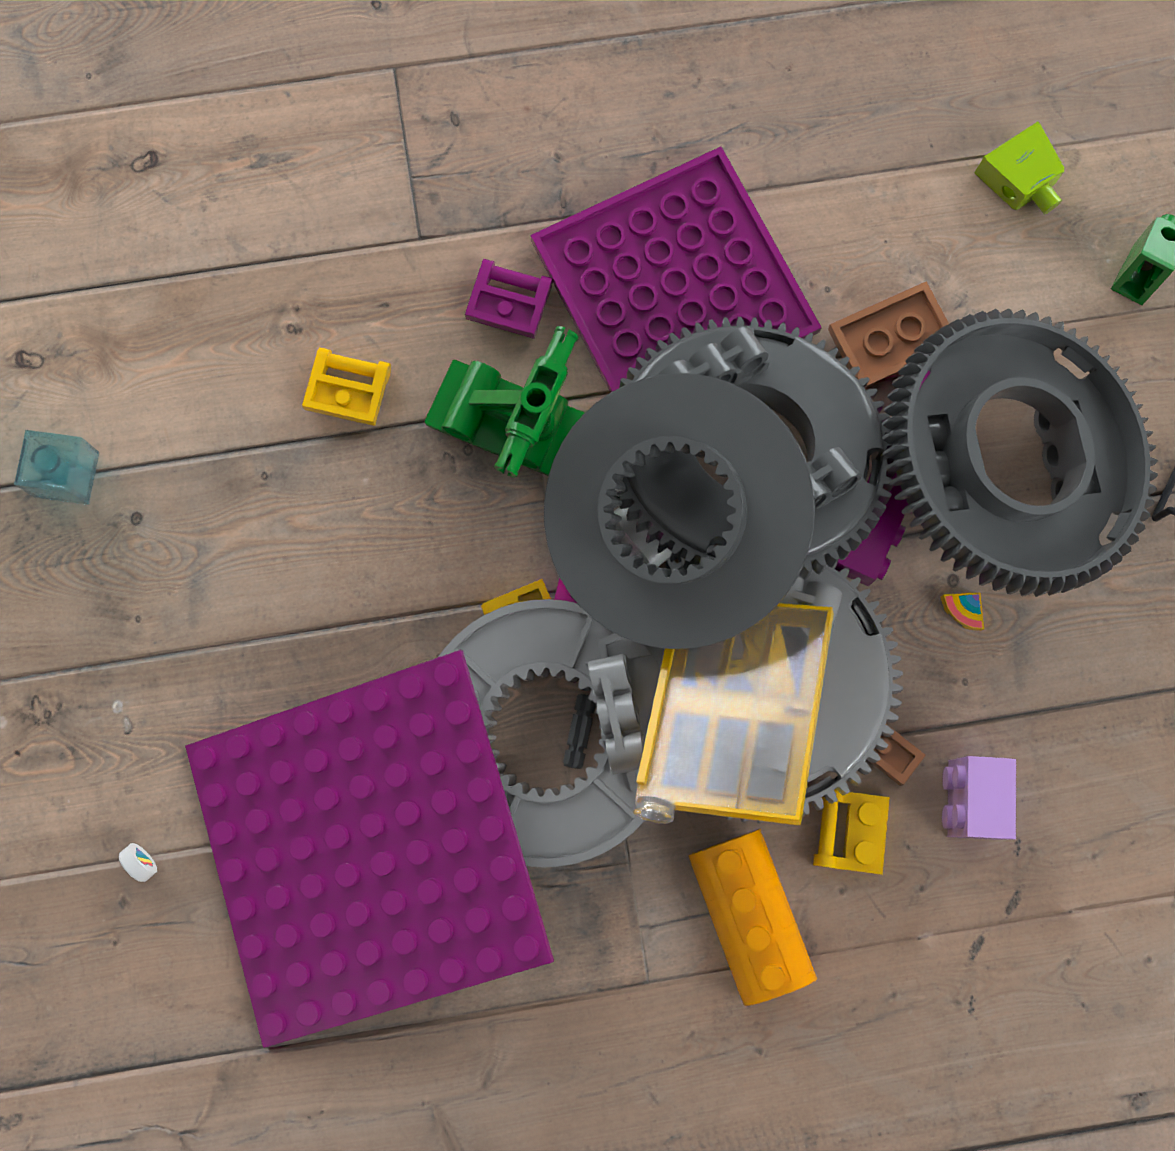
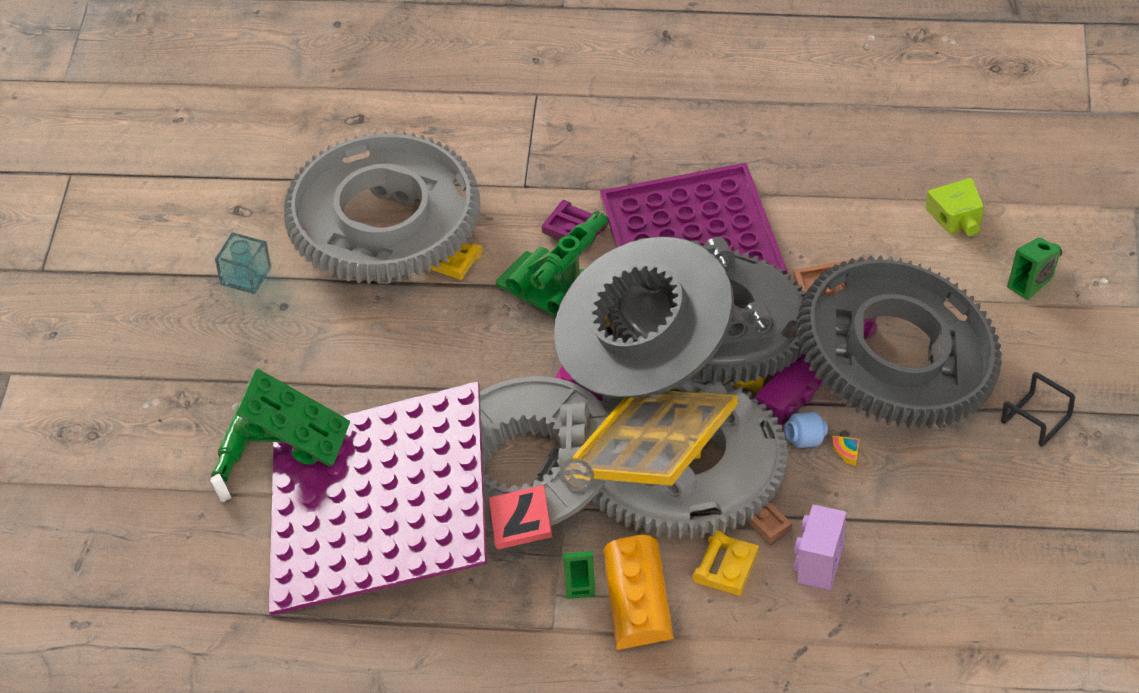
camera: 20 degrees right, 30 degrees down
(195, 768) = (281, 414): none -> green plate
(233, 258) = (397, 168): none -> light grey piece
(573, 850) = (520, 517): none -> coral tile
(674, 920) = (579, 574): none -> green slope
(908, 595) = (805, 429): none -> light blue head

